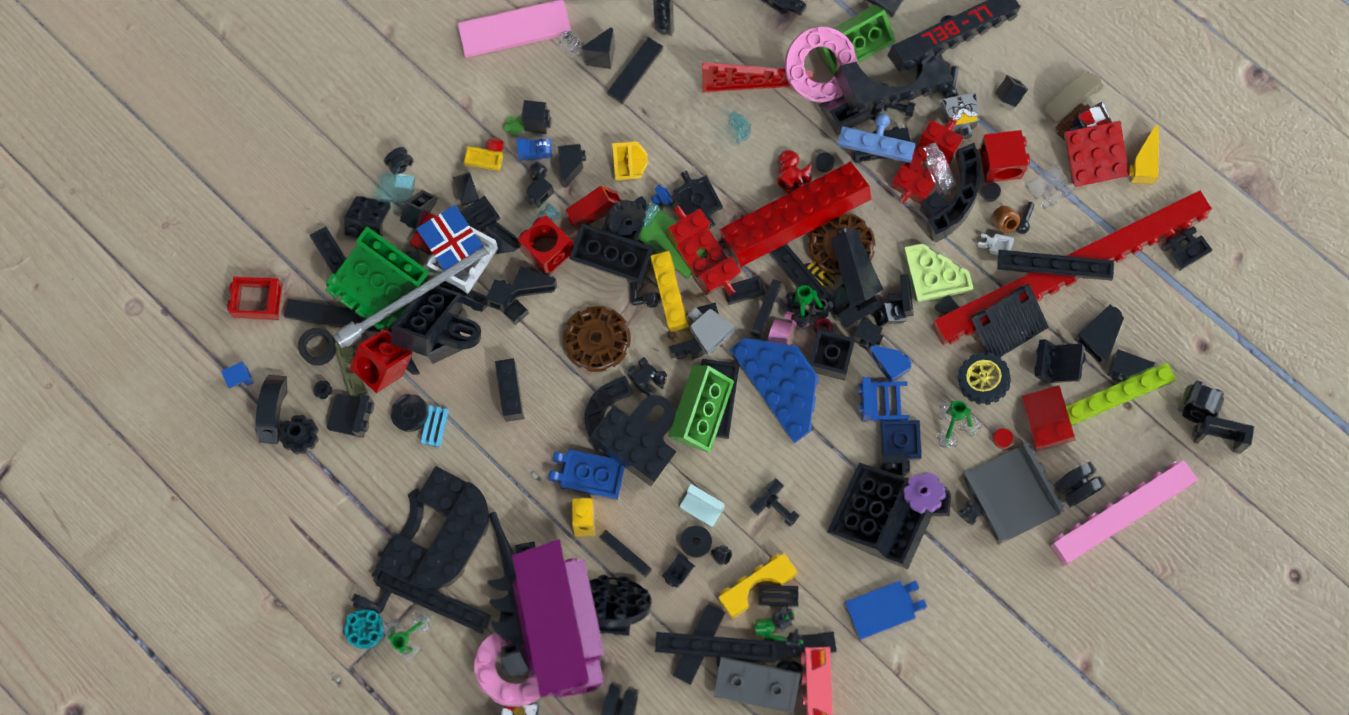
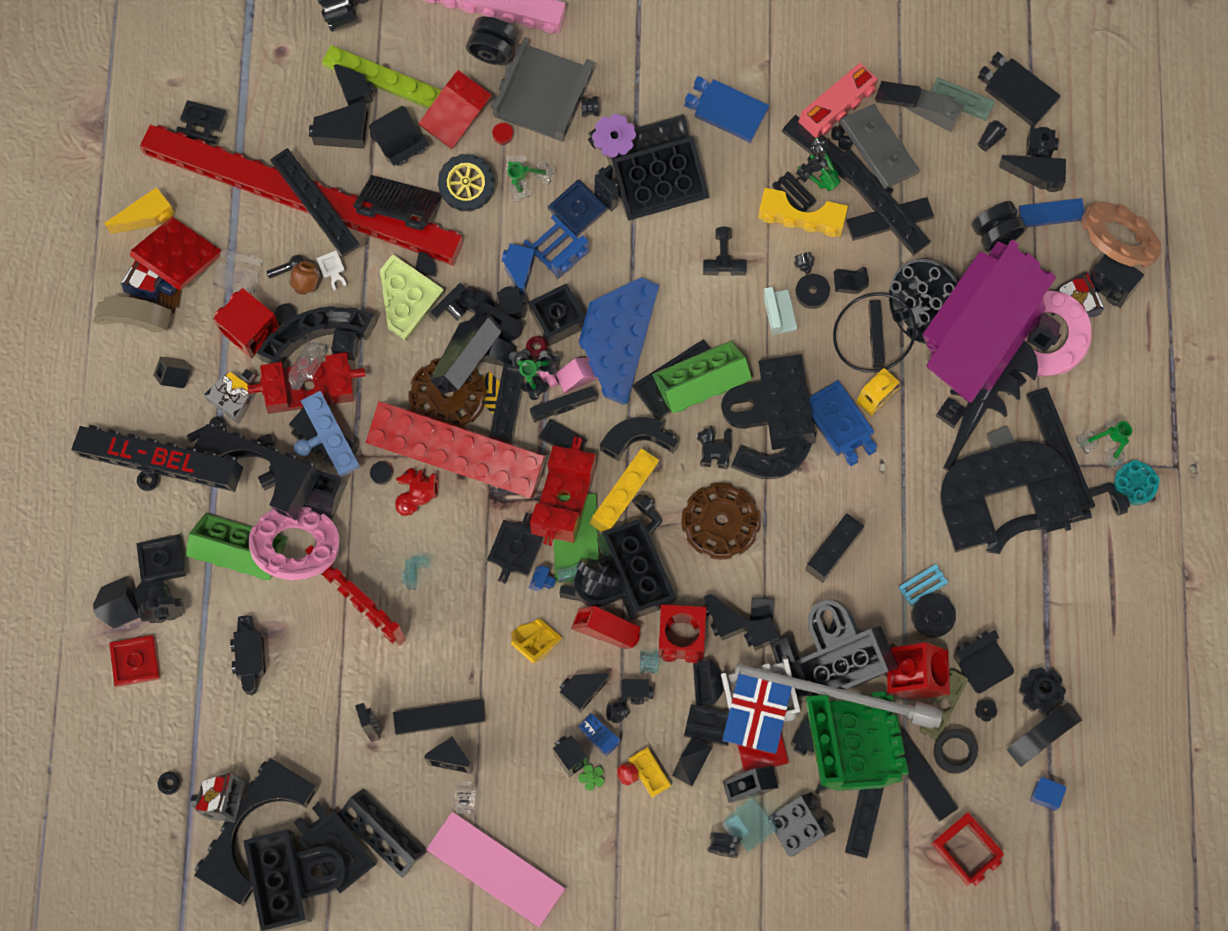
camera: 135 degrees left, 0 degrees up
(477, 567) = (1000, 438): none -> dark grey tile
(610, 581) = (896, 362): none -> black piece
(710, 329) = (631, 422): light grey torso -> none

